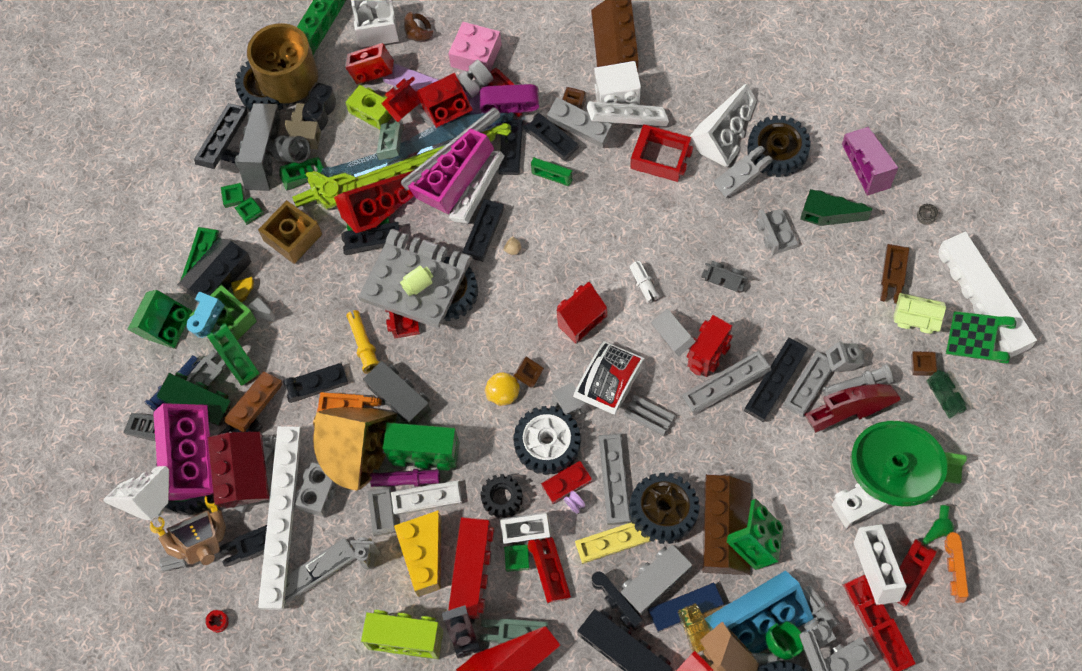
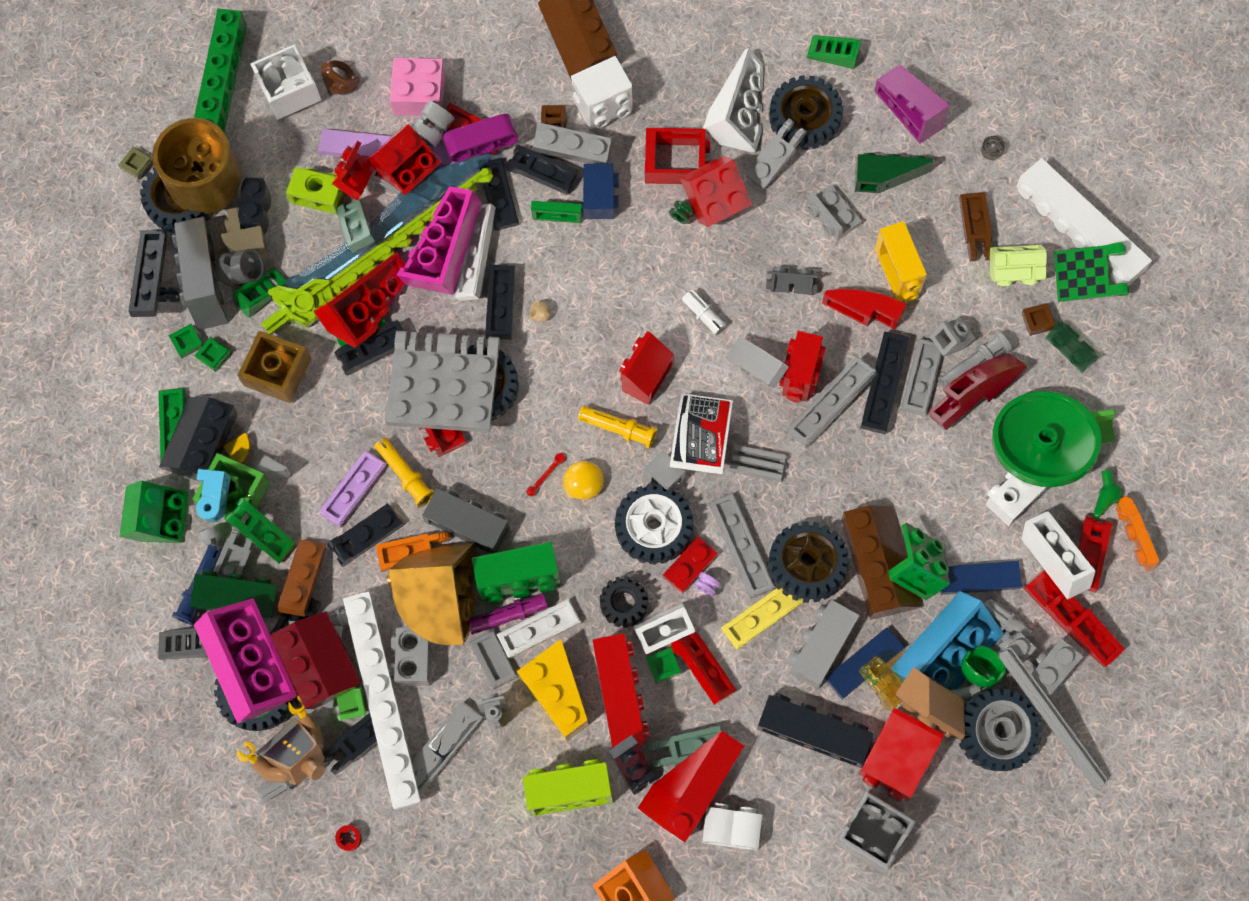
camera: 20 degrees left, 5 degrees up
(142, 496) = (216, 724): white wedge -> none
(197, 346) = (210, 533): none -> light grey hinge
(240, 53) = (136, 163): none -> olive tile
(256, 513) = (352, 704): none -> bright green panel
(319, 343) = (353, 488): none -> lavender tile
(369, 63) = (298, 138): red brick -> none
(417, 280) = (449, 384): yellowish green brick -> none
(480, 125) = (455, 180): light grey axle -> none
(488, 367) = (559, 459): none -> red hinge
(528, 372) = (607, 452): reddish brown plate -> none
(552, 358) = (628, 429): none -> yellow pin
(590, 165) = (598, 191): none -> dark blue brick
(616, 600) = (788, 678): black plate -> none
(627, 113) = (623, 120): white tile -> none
(651, 198) = (681, 212): none -> dark green bush
(683, 188) = (715, 191): none -> red brick
(779, 313) = (865, 305): none -> red slope
(810, 565) = (983, 578): none -> dark blue tile
(819, 284) = (900, 262): none -> yellow window
(821, 112) = (841, 59): none -> green slope

